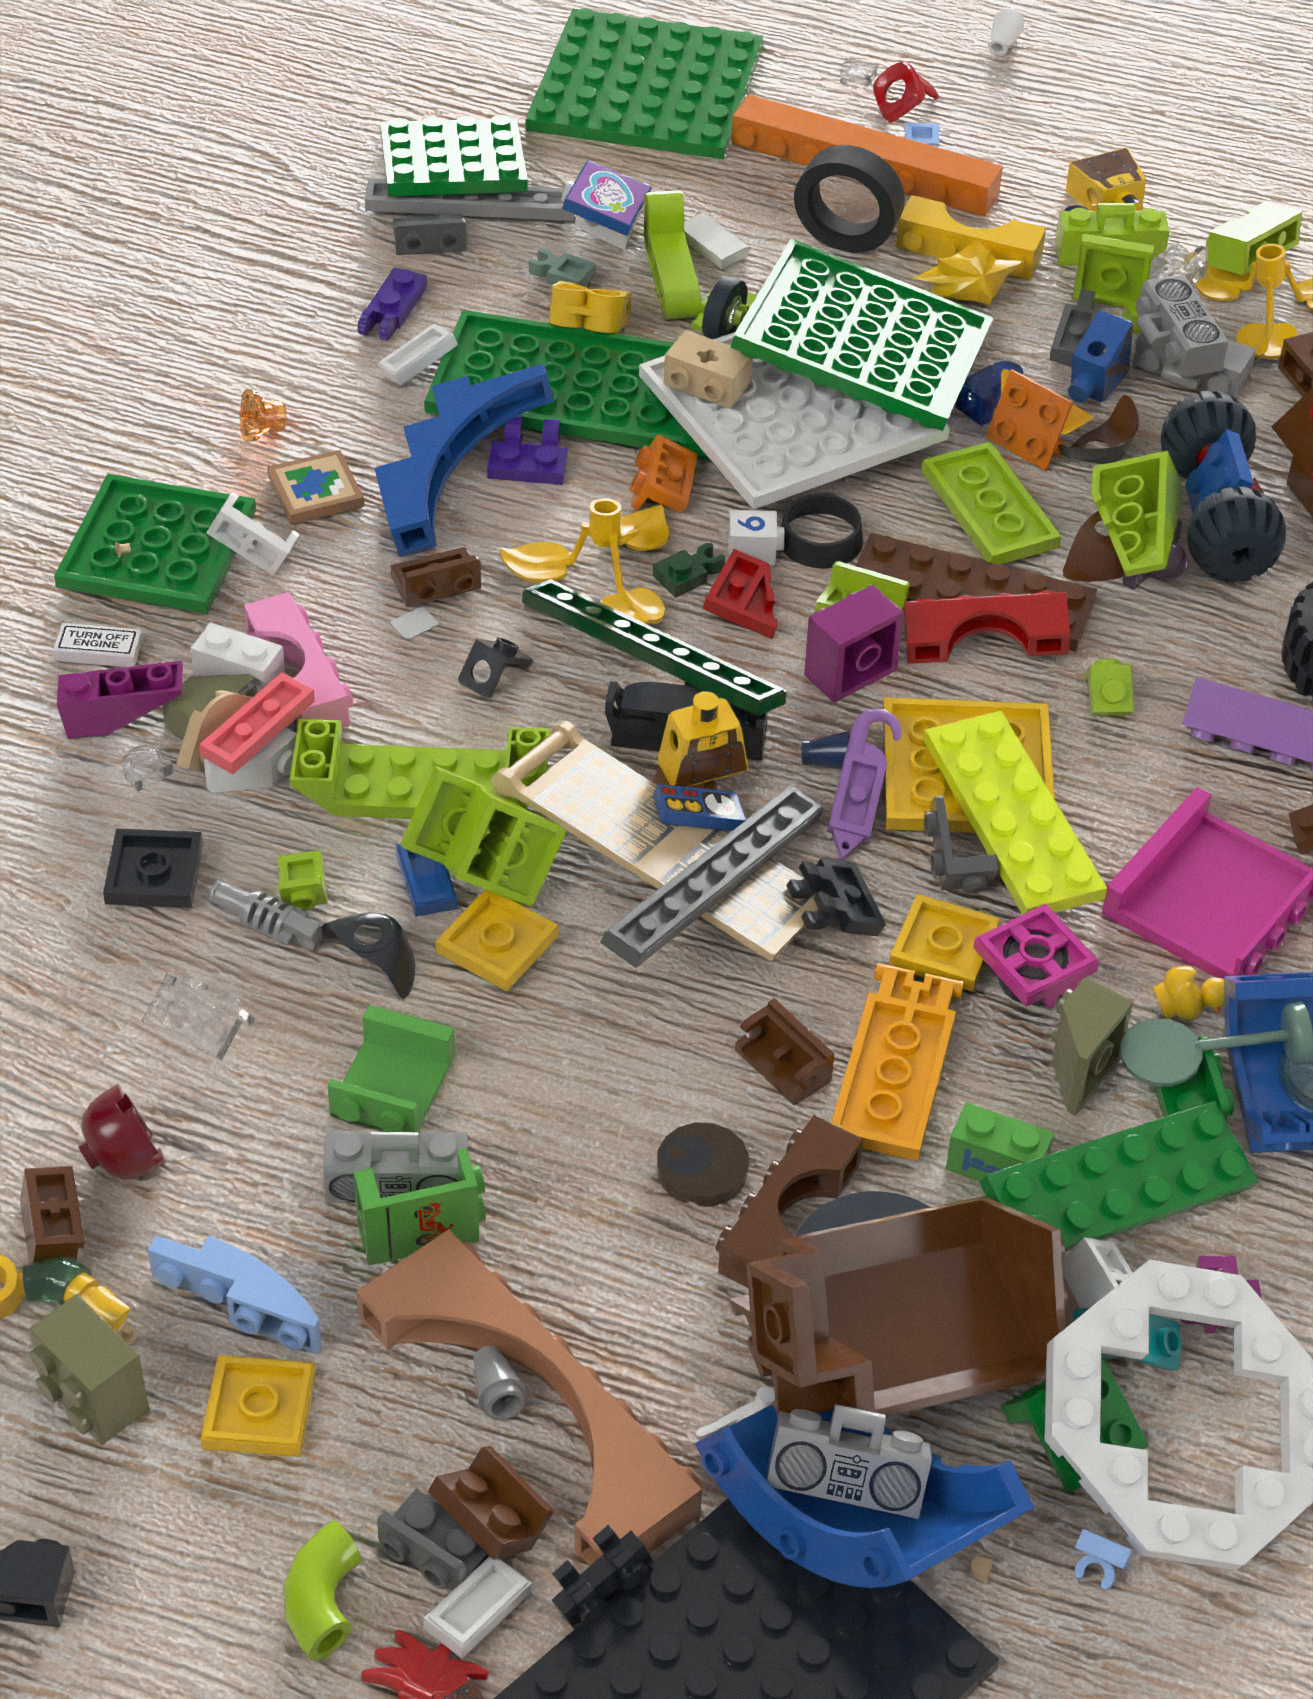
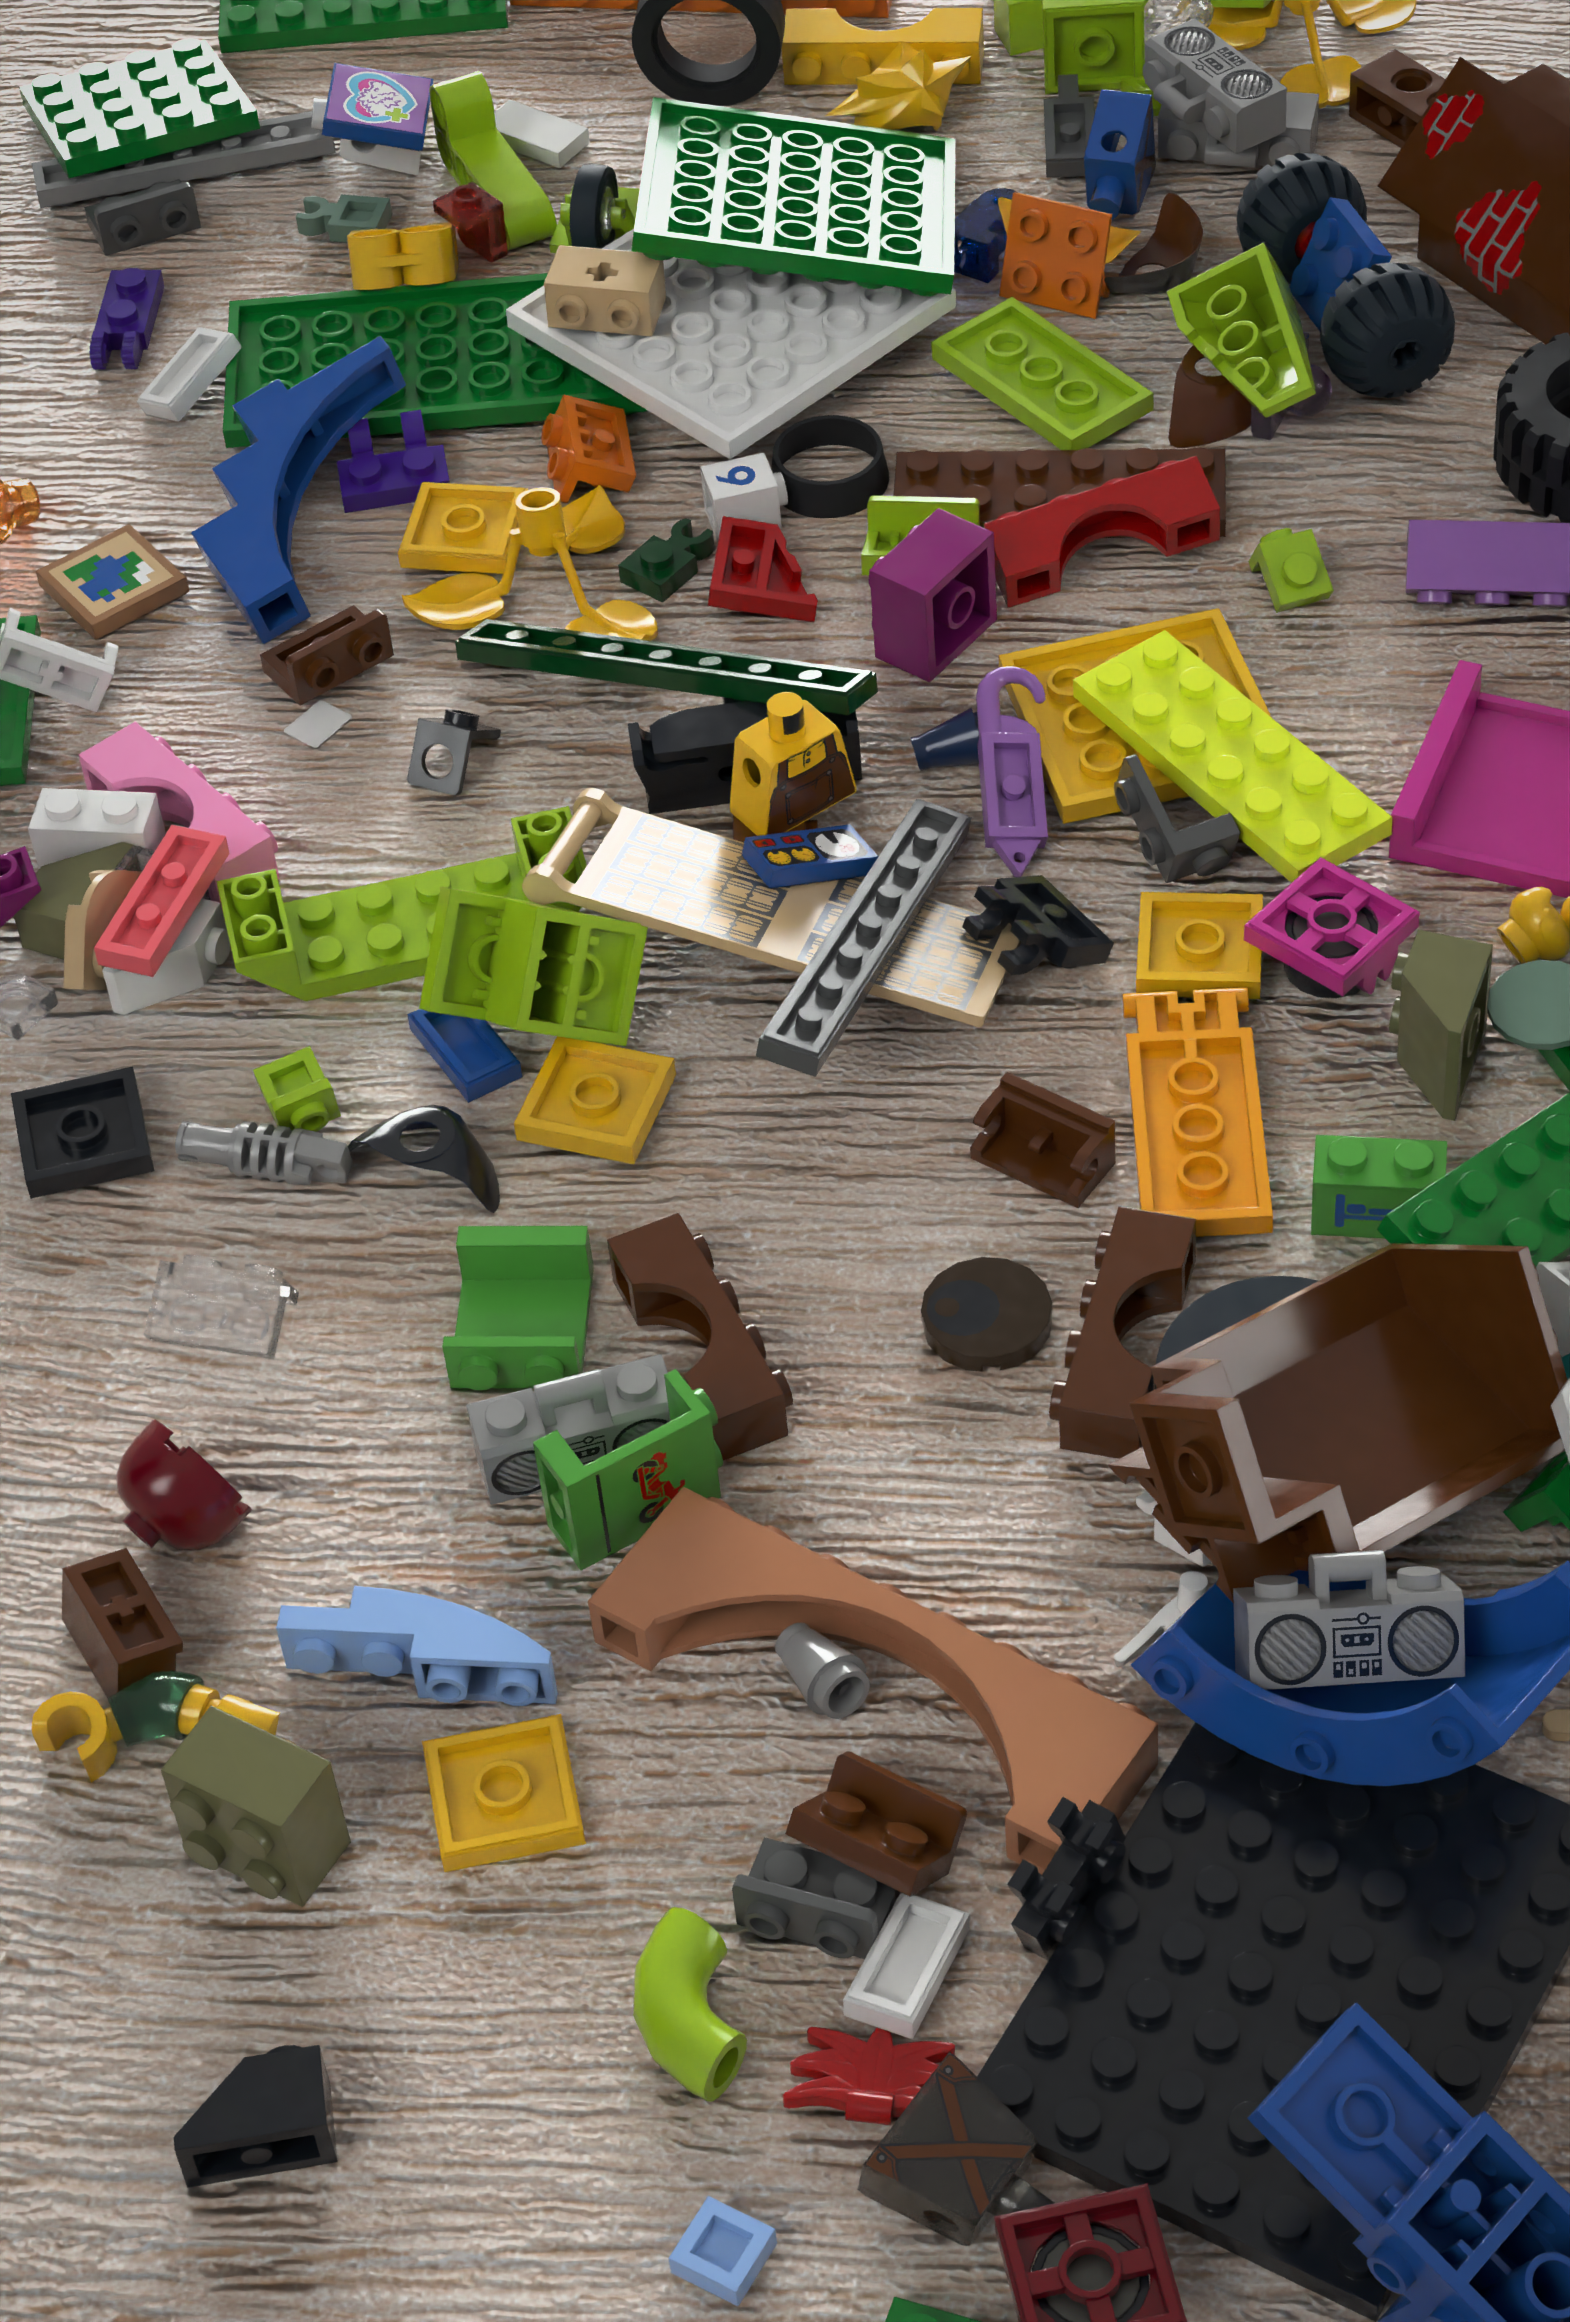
camera: 10 degrees left, 0 degrees up
(509, 1166) = (671, 1283): none -> reddish brown arch
(555, 509) = (460, 528): none -> yellow plate
(646, 292) = (477, 219): none -> clear red bracket

